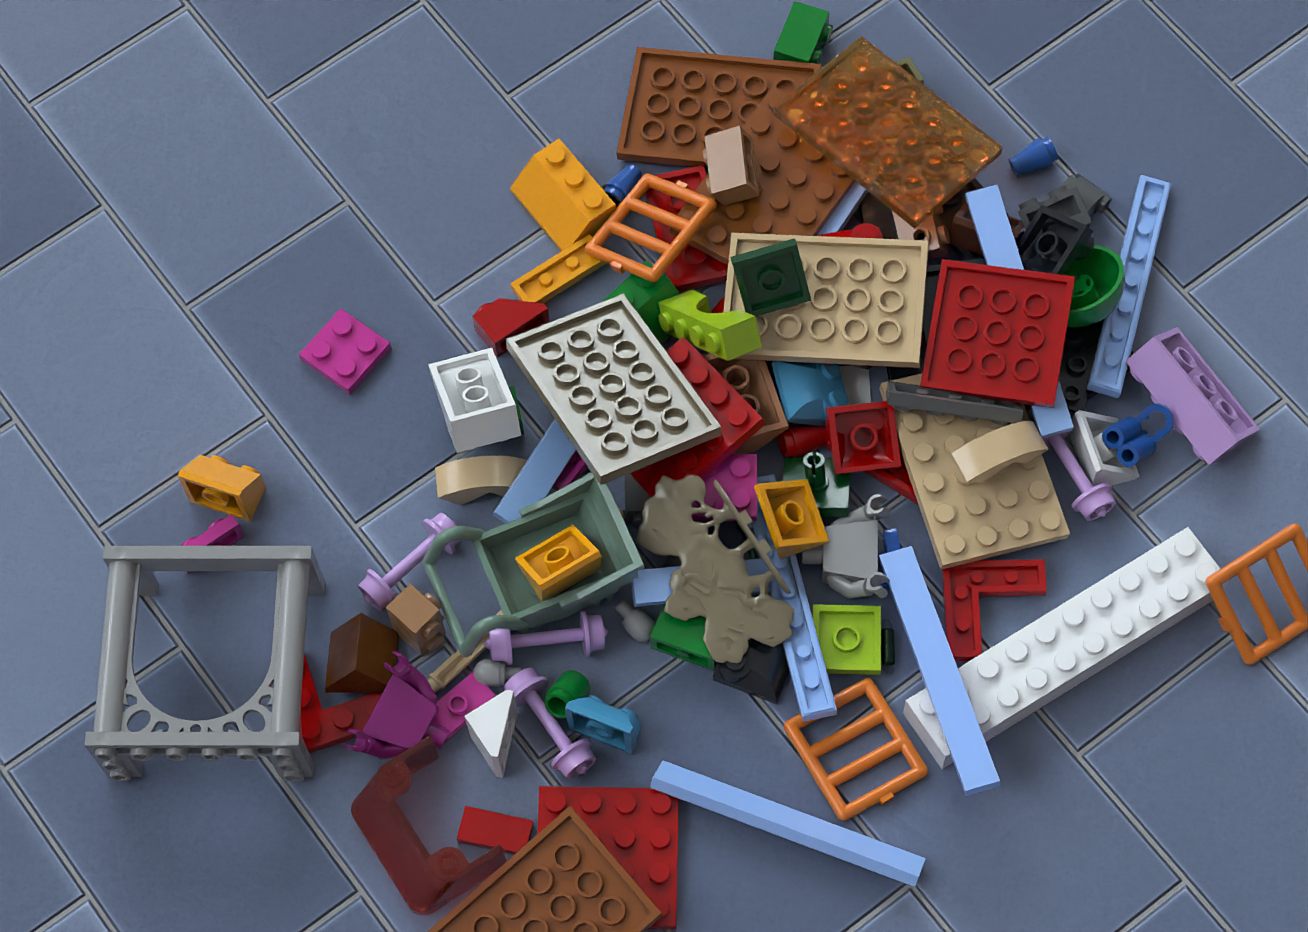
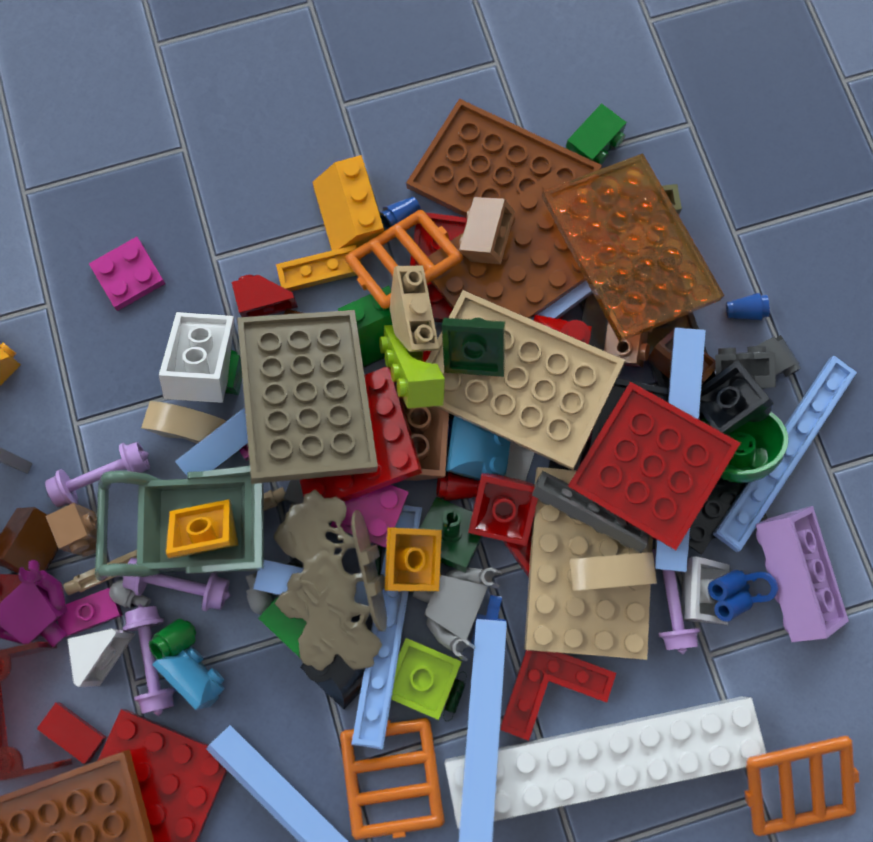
camera: 20 degrees right, 10 degrees up
(686, 269) = (412, 309): none -> tan slope

